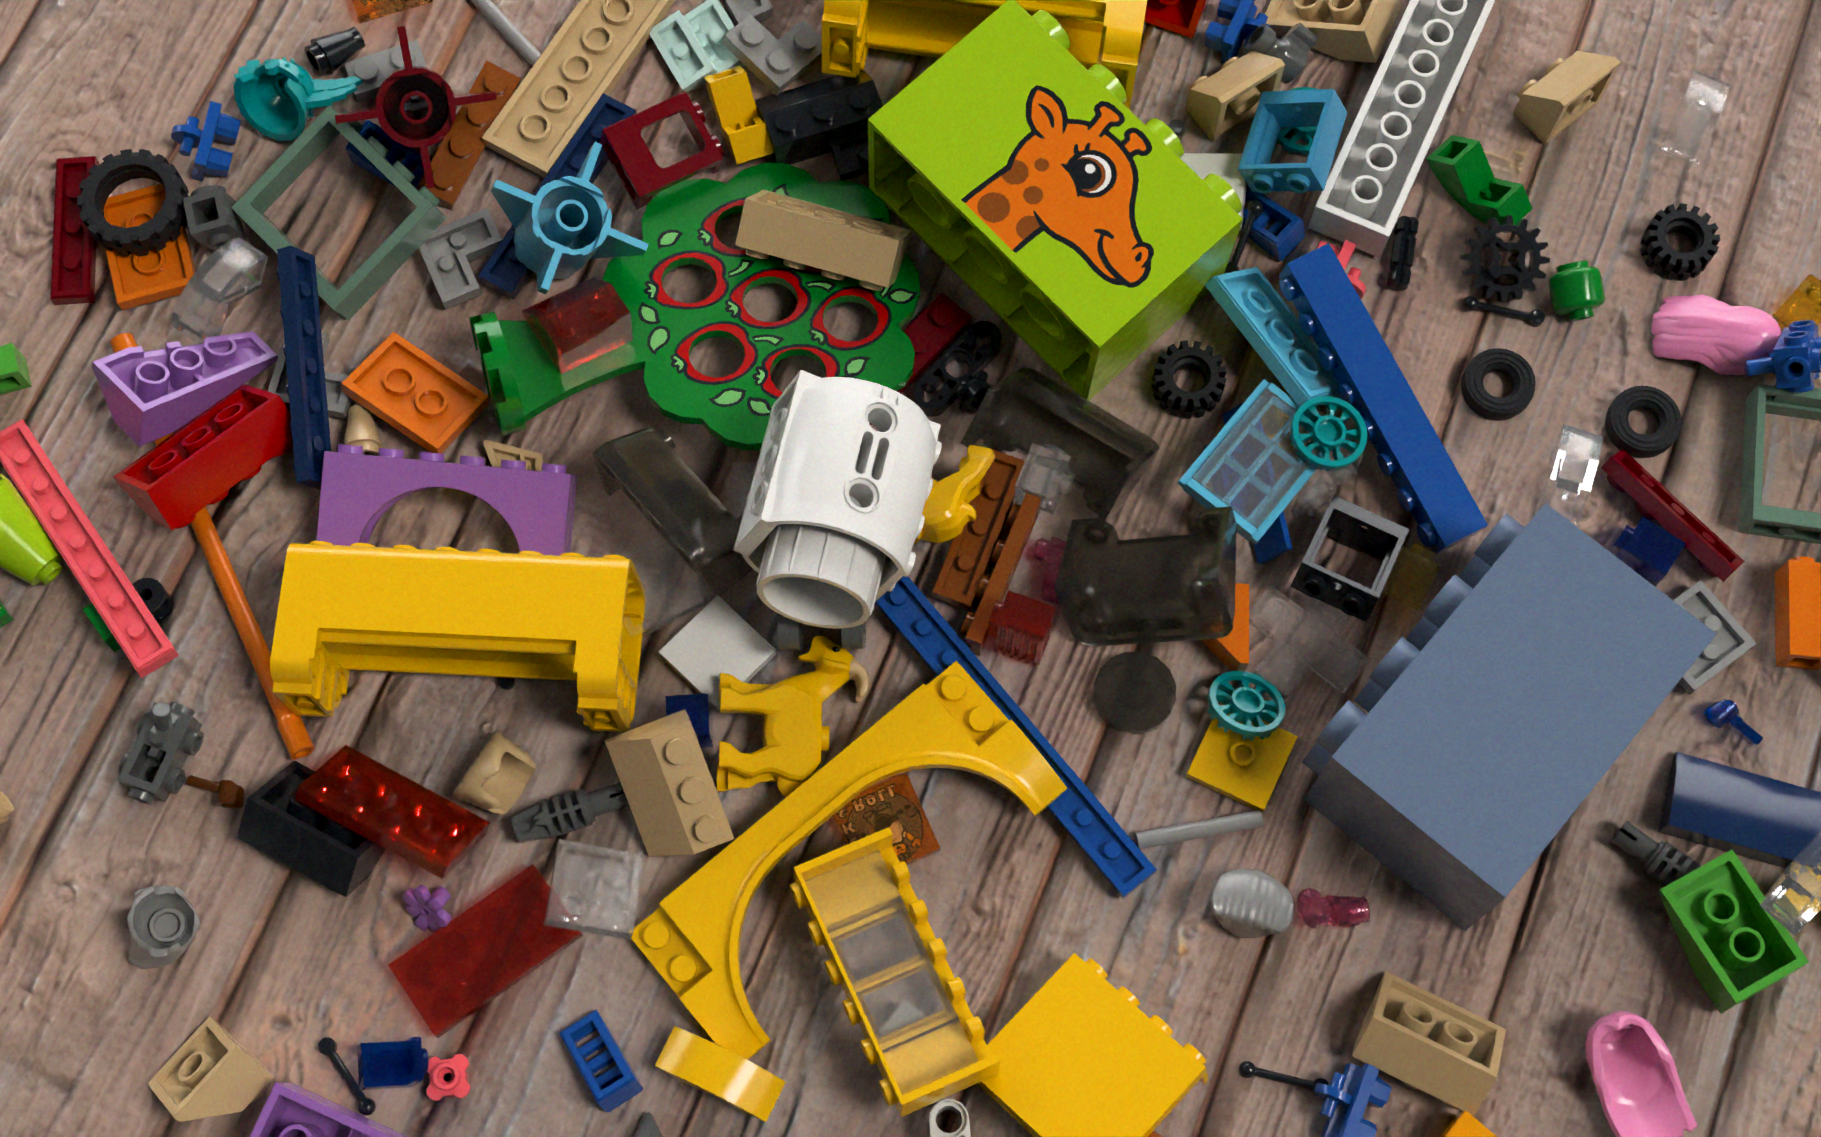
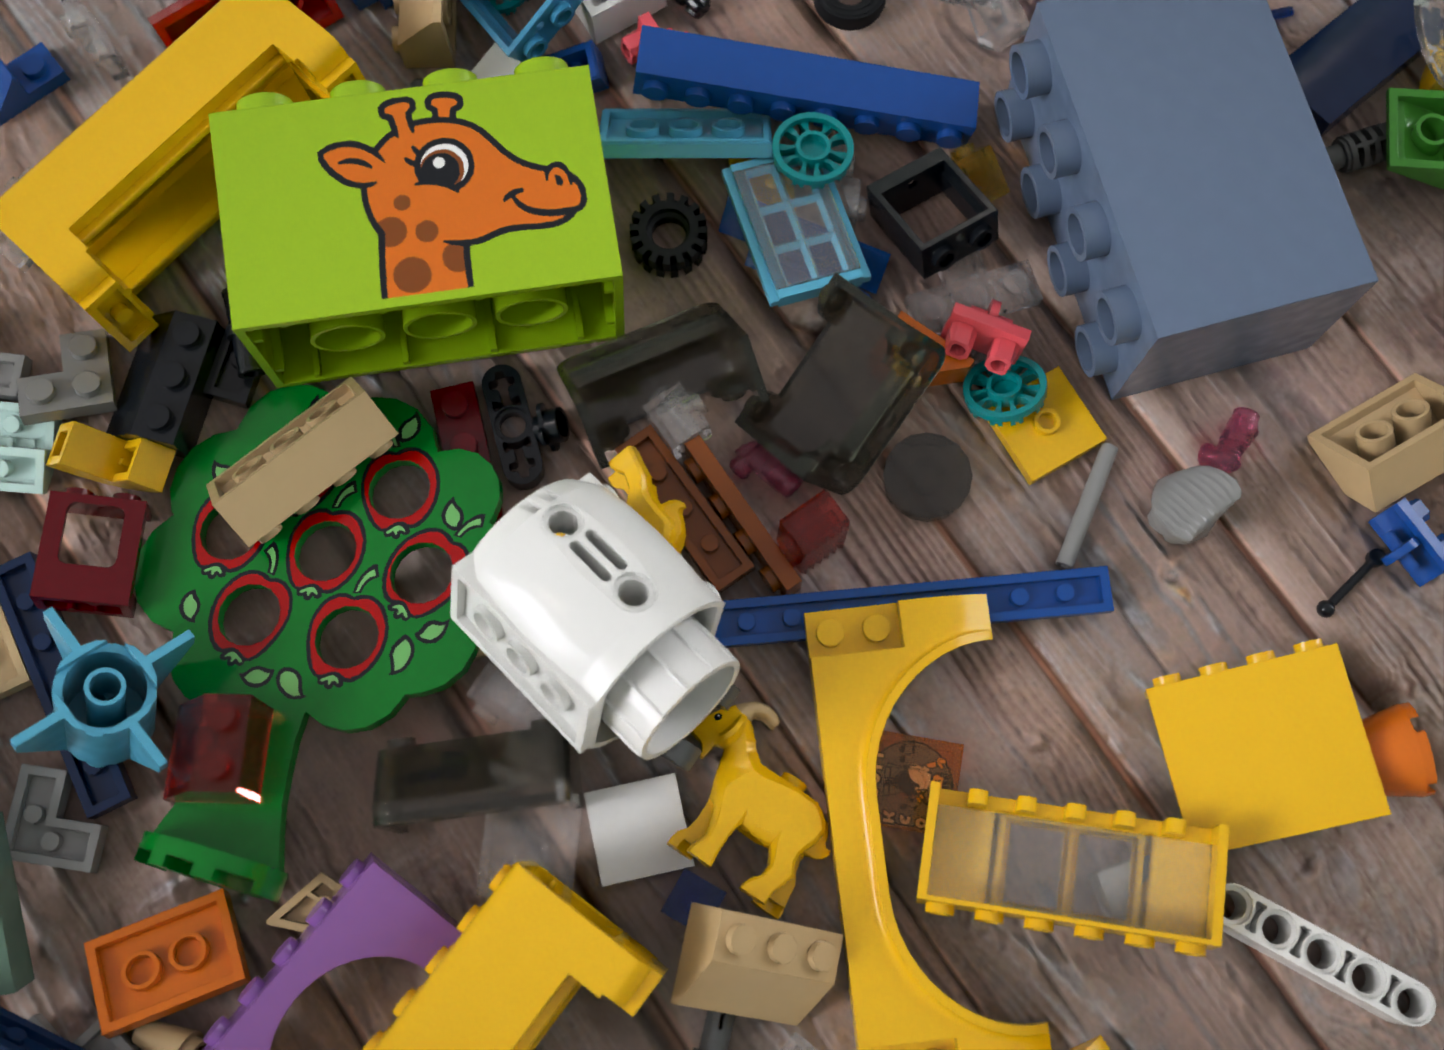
camera: 55 degrees left, 5 degrees up
(1277, 656) = (984, 332): none -> coral hips

